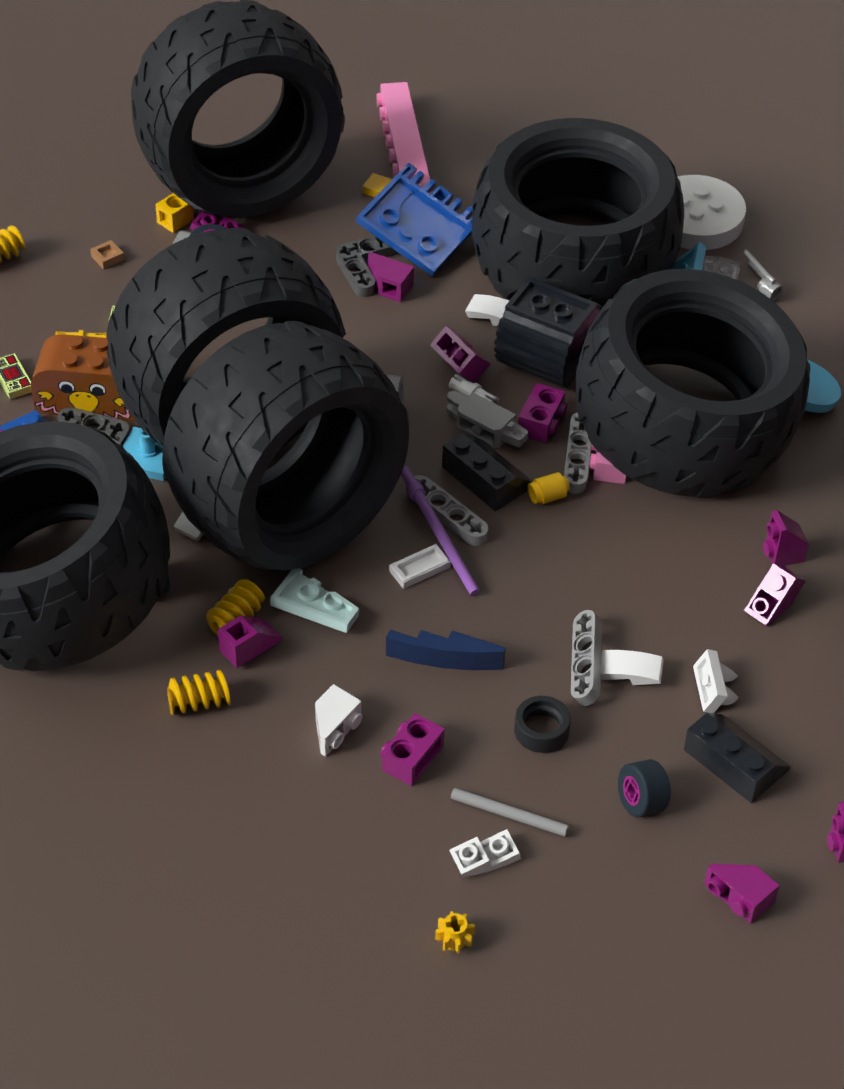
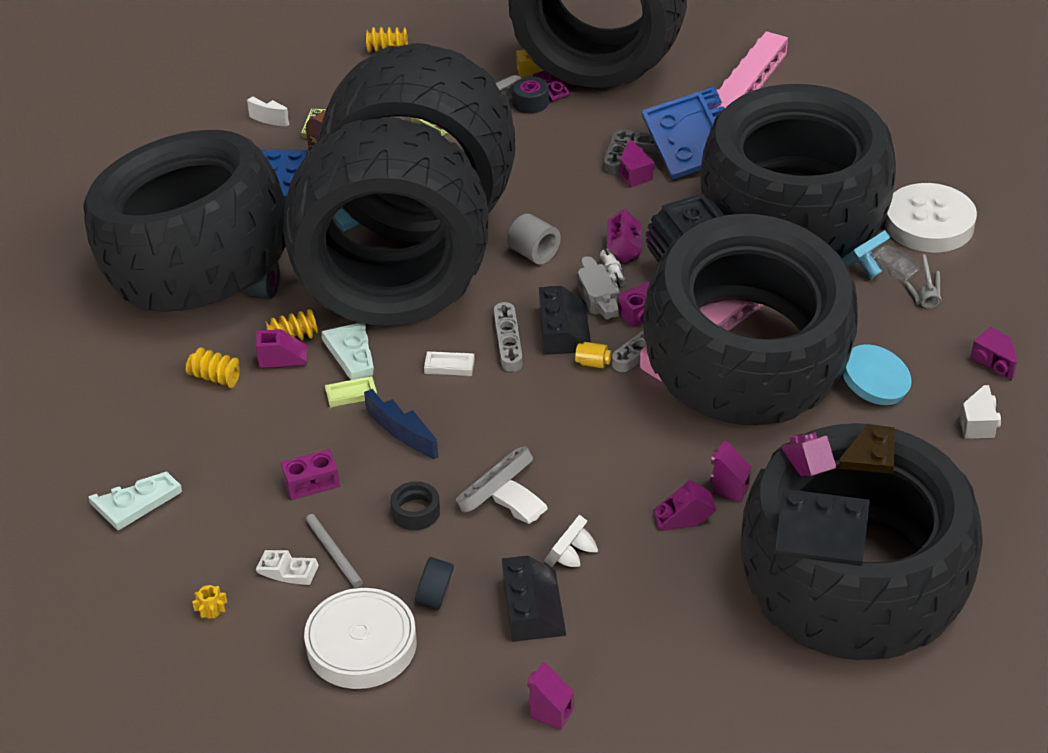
camera: 40 degrees right, 5 degrees down
(264, 877) = (131, 503): none -> light aqua wing
(335, 716) = (280, 428): white slope -> none
(355, 645) = (348, 391): none -> yellowish green tile
(417, 492) = (491, 311): medium lavender bar -> none
(632, 880) = (360, 638): none -> white brick
(743, 888) = (433, 690): magenta slope -> none

